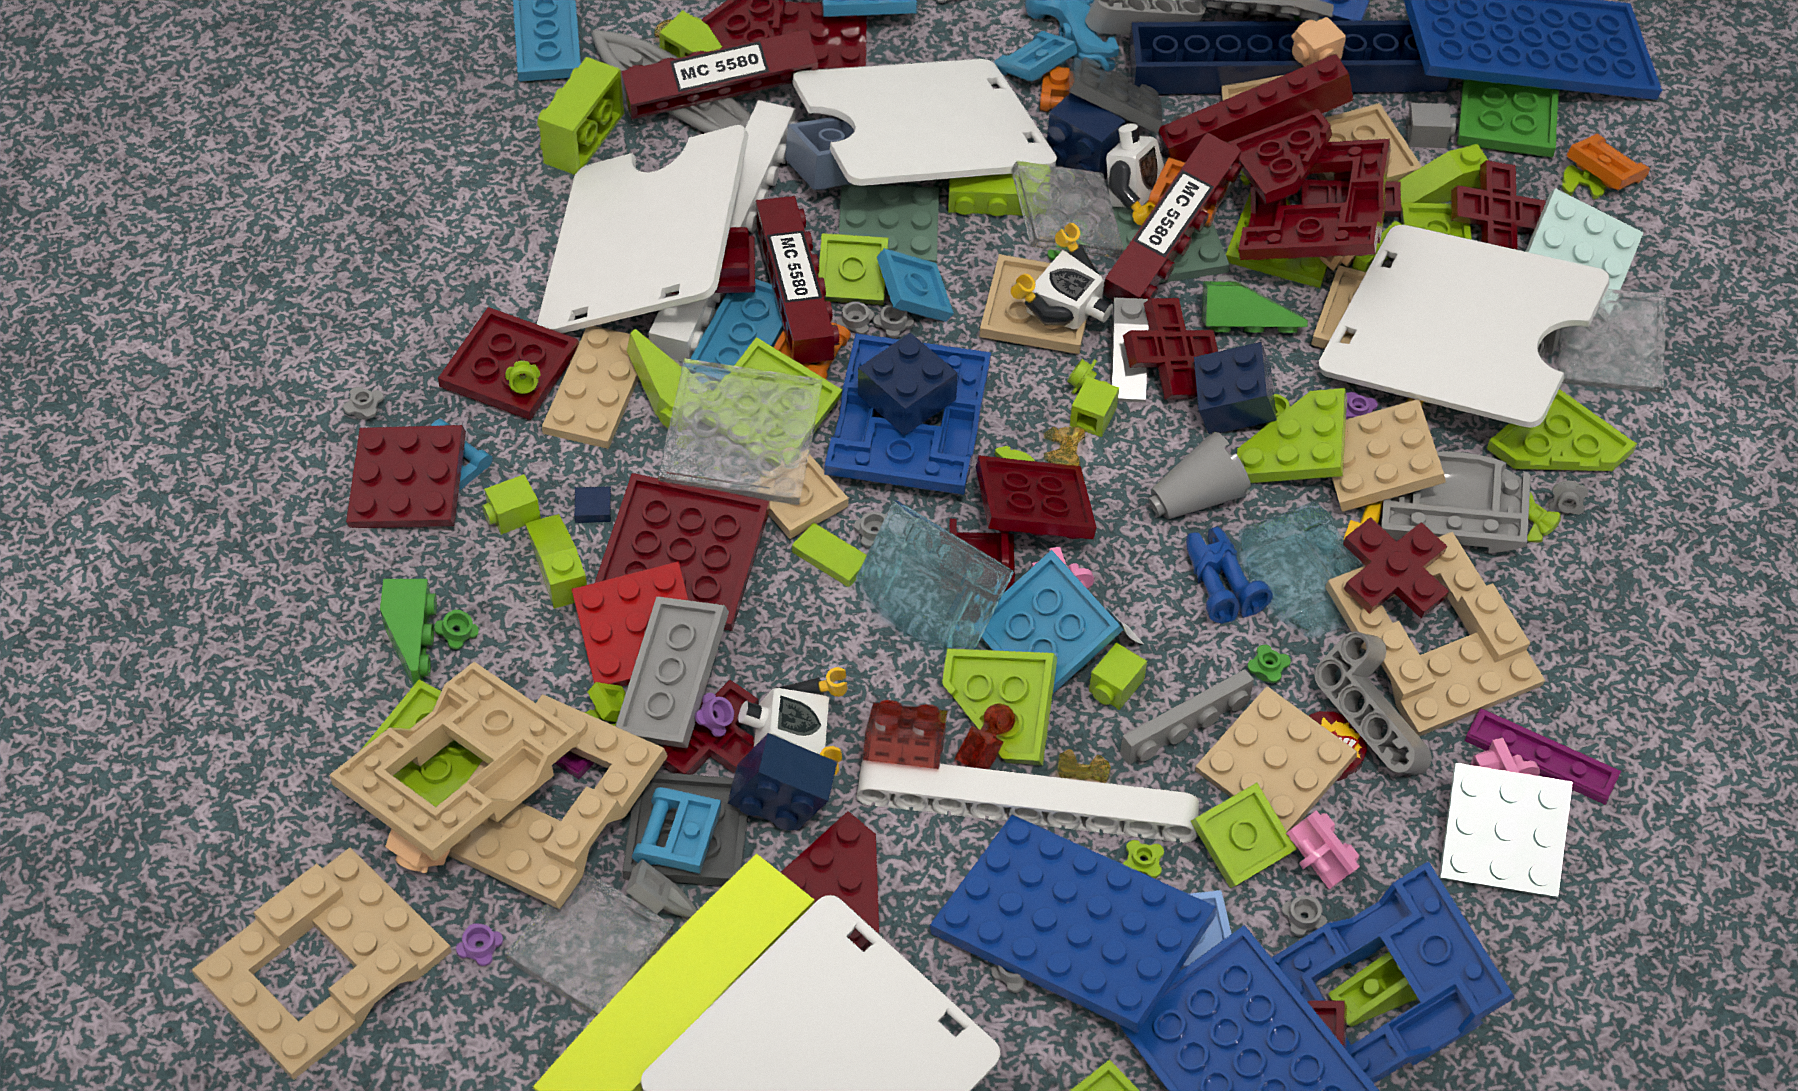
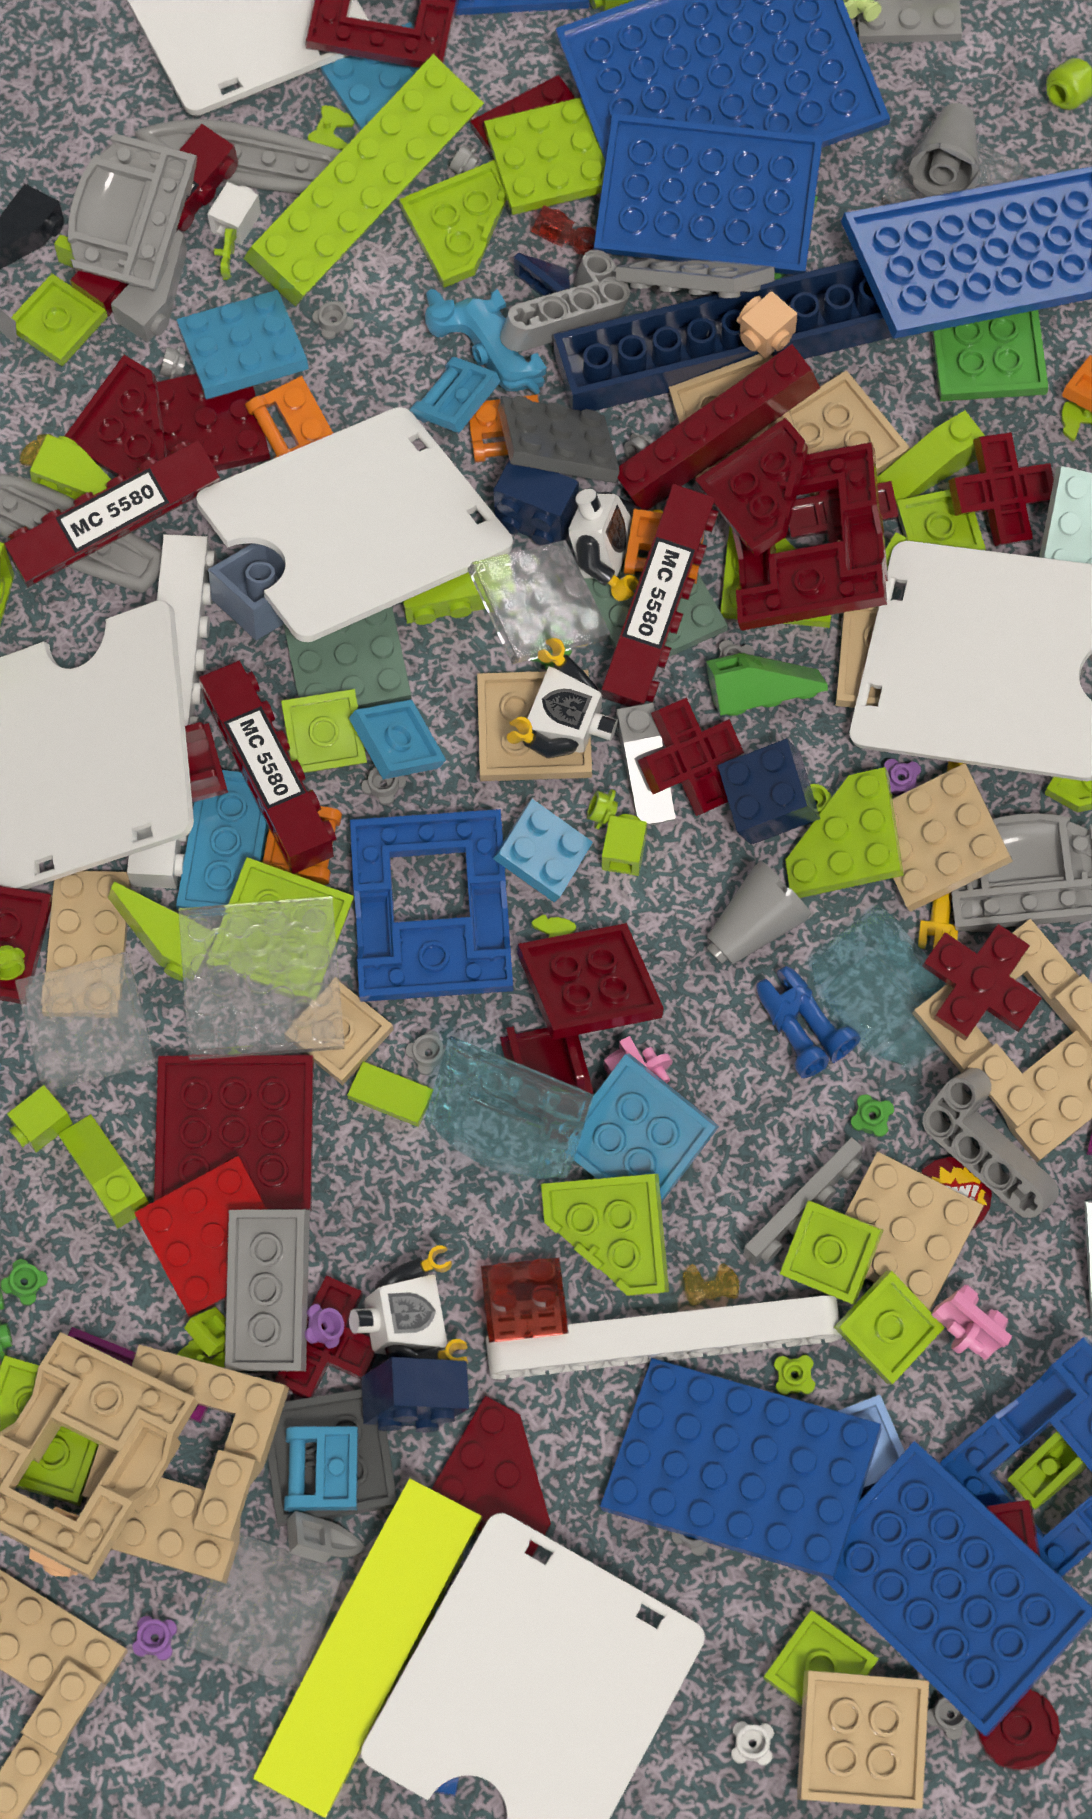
camera: 10 degrees left, 15 degrees up
(577, 438) = (85, 1022): none -> clear plate
(592, 504) = (123, 1094): dark blue tile -> none
(856, 317) = (338, 781): light grey plate -> none
(897, 38) = (298, 412): none -> orange plate
(907, 383) = (423, 880): dark blue brick -> none
(982, 745) = (601, 1290): clear red plate -> none
(1020, 393) = (543, 850): none -> dark azure plate
(1069, 439) = (605, 887): clear yellow piece -> none
(1117, 676) = (722, 1172): lime brick -> none
(1127, 630) = (718, 1114): white sticker -> none
(1203, 757) = (831, 1252): none -> lime plate
(1303, 905) = (967, 1386): light grey plate -> none
(1429, 125) = (906, 387): light grey brick -> none

